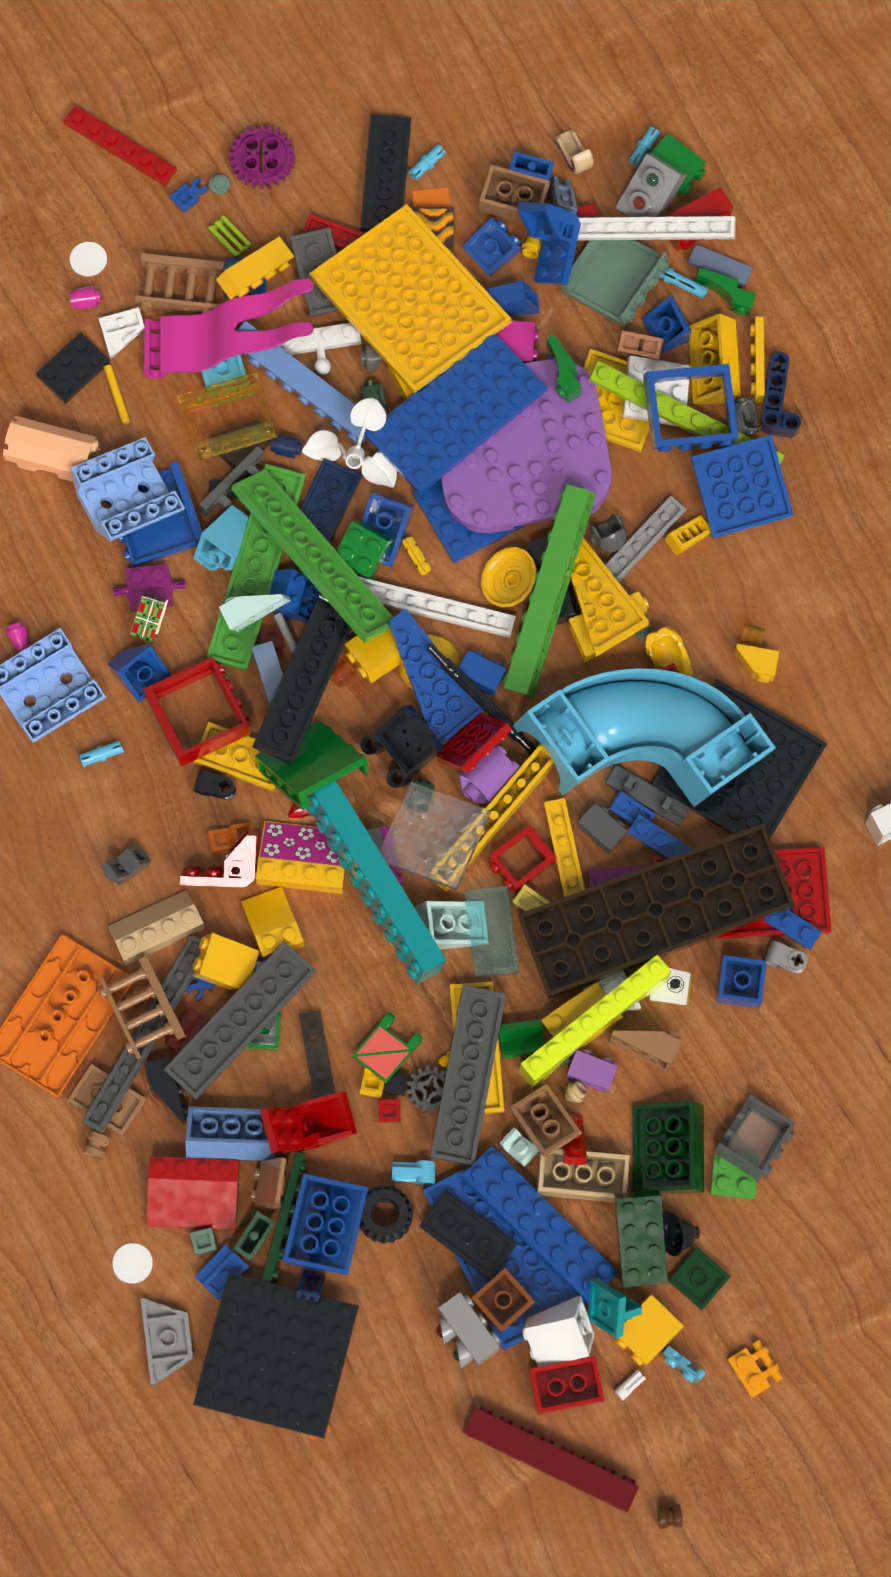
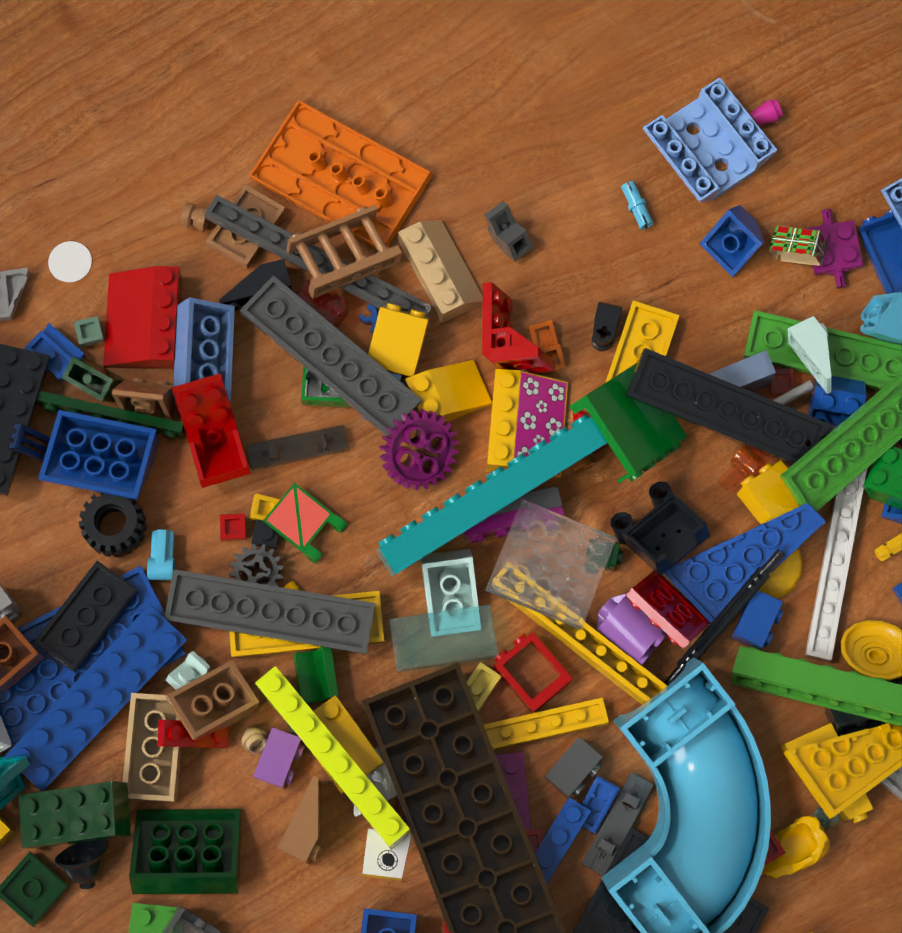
camera: 90 degrees right, 0 degrees up
(186, 678) = (723, 278): red window -> none
(340, 950) = (427, 428): none -> magenta gear

